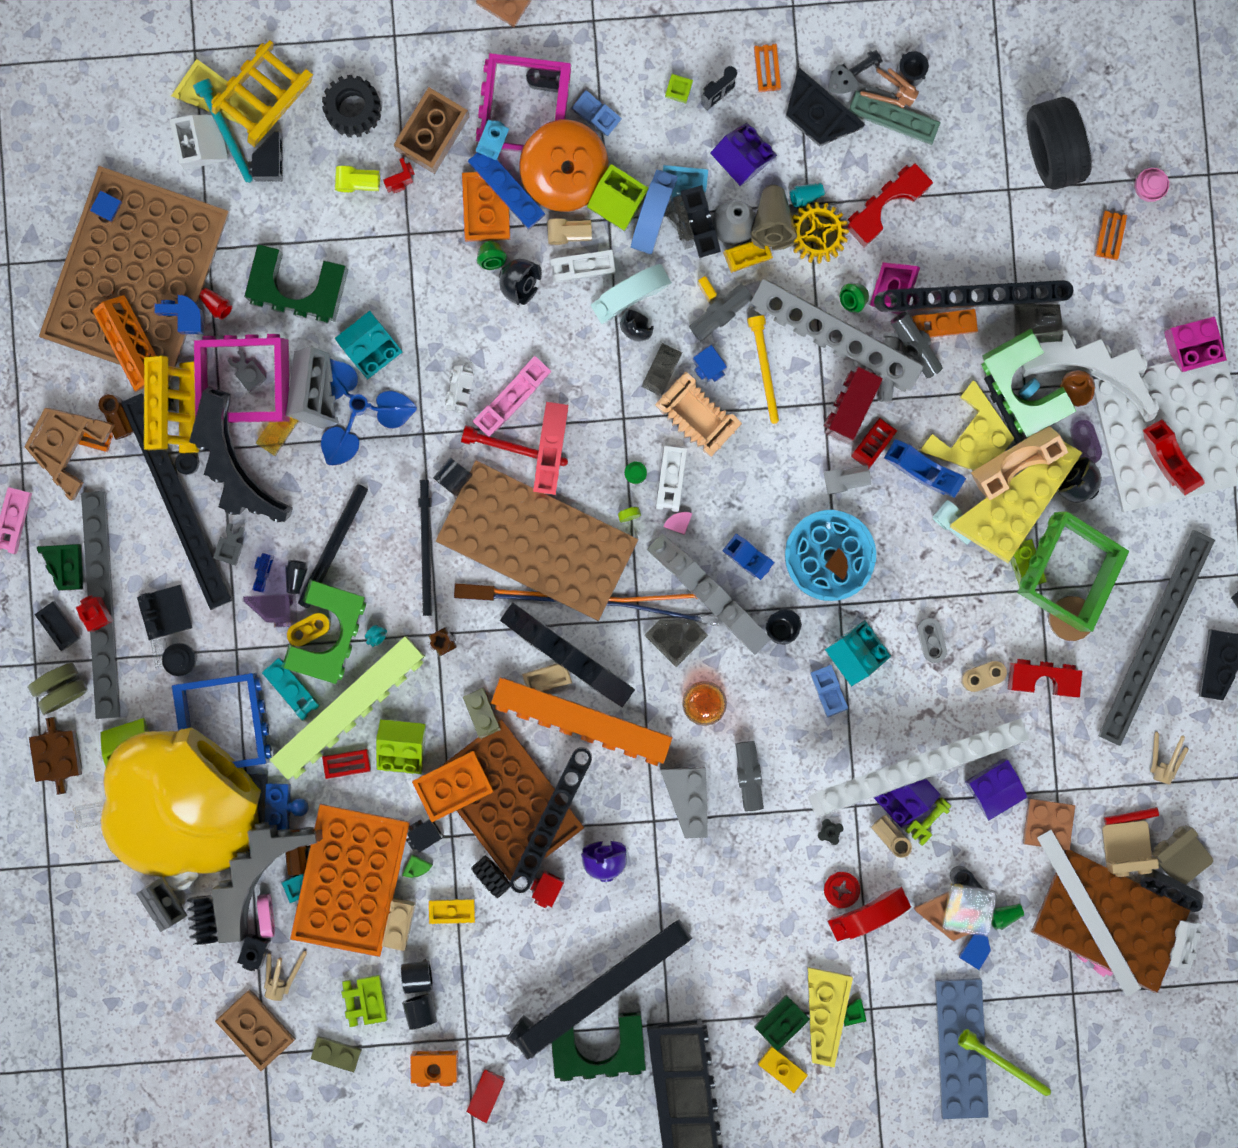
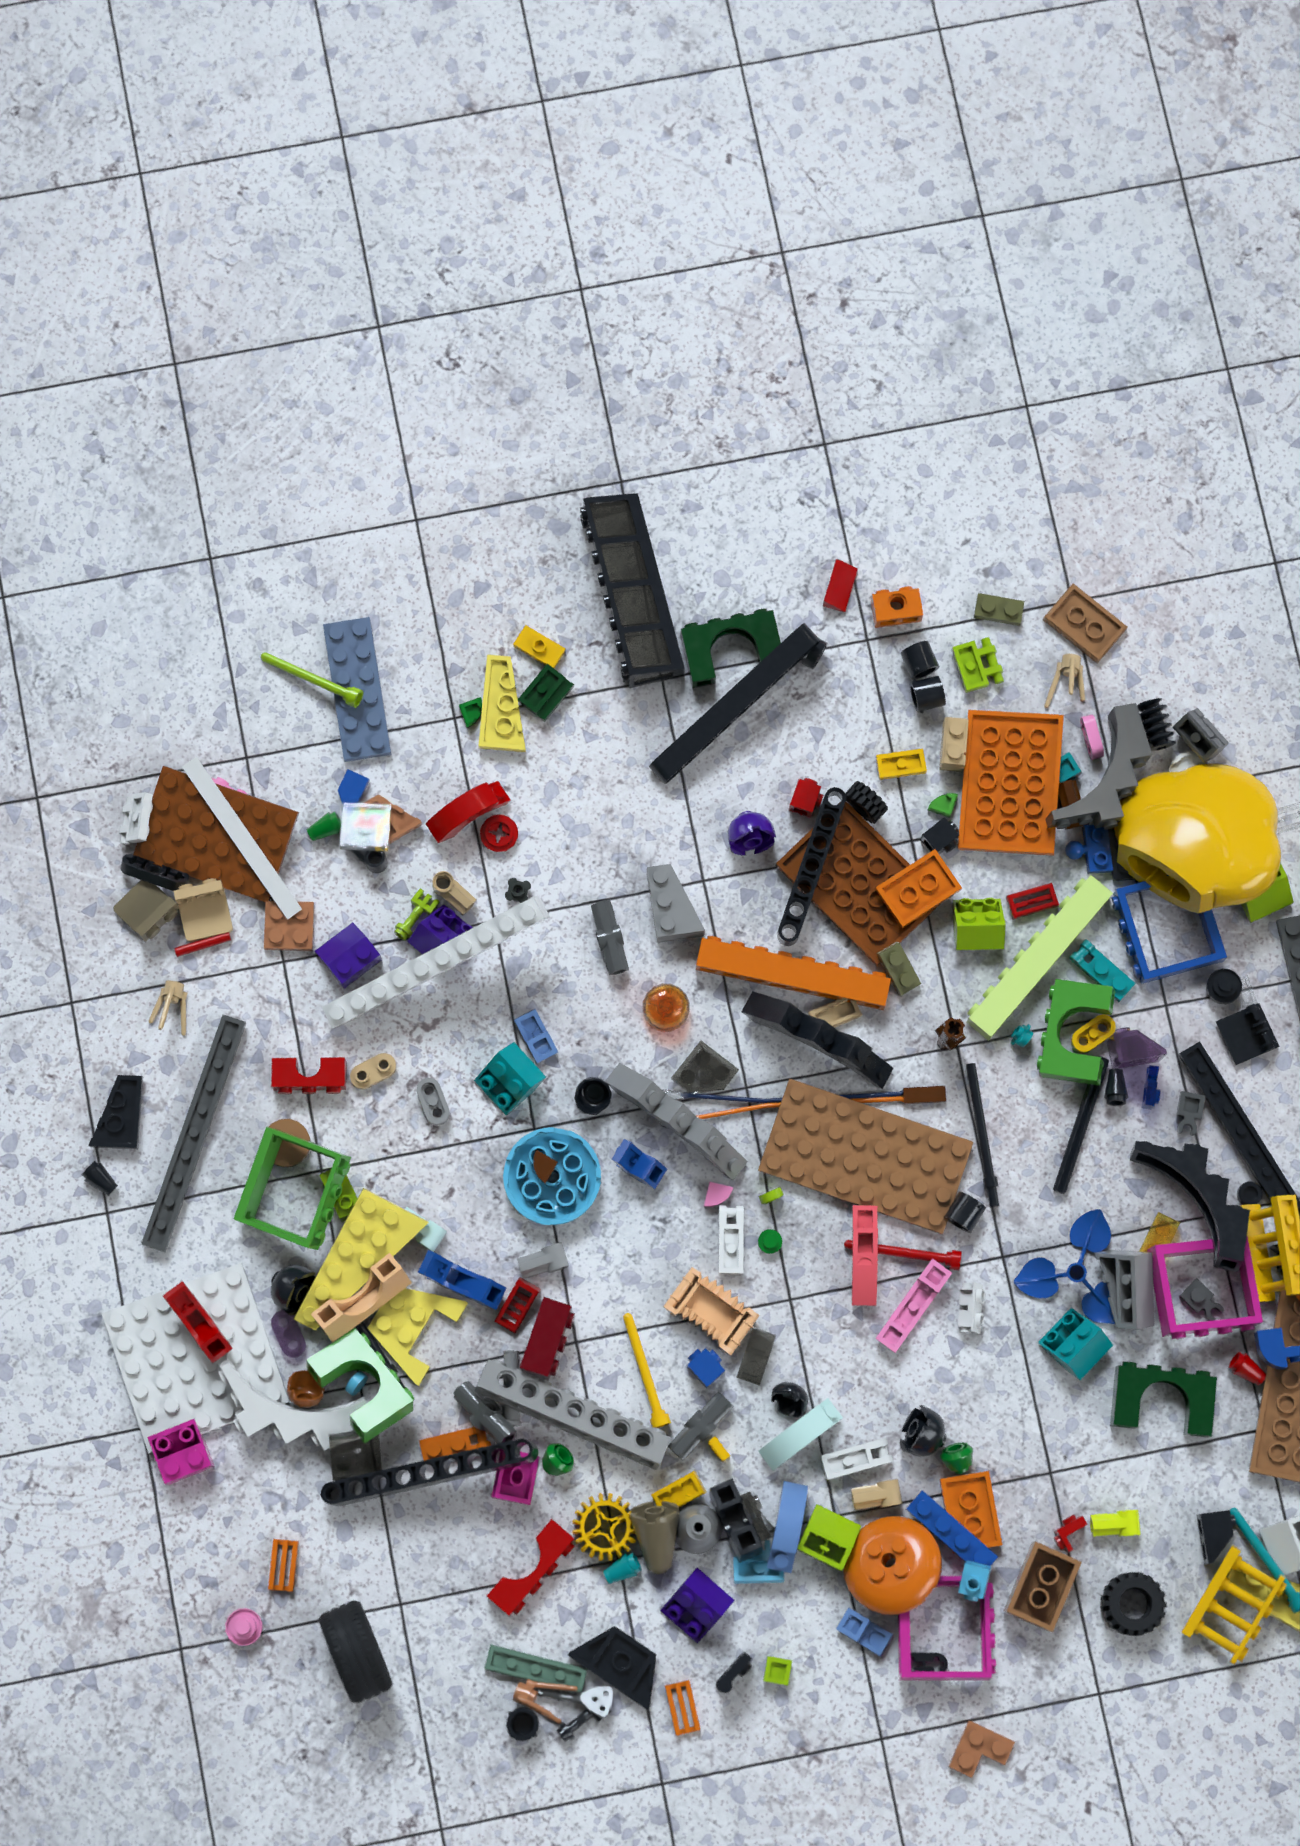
camera: 165 degrees right, 10 degrees down
(253, 952) = (1098, 699): black brick -> none

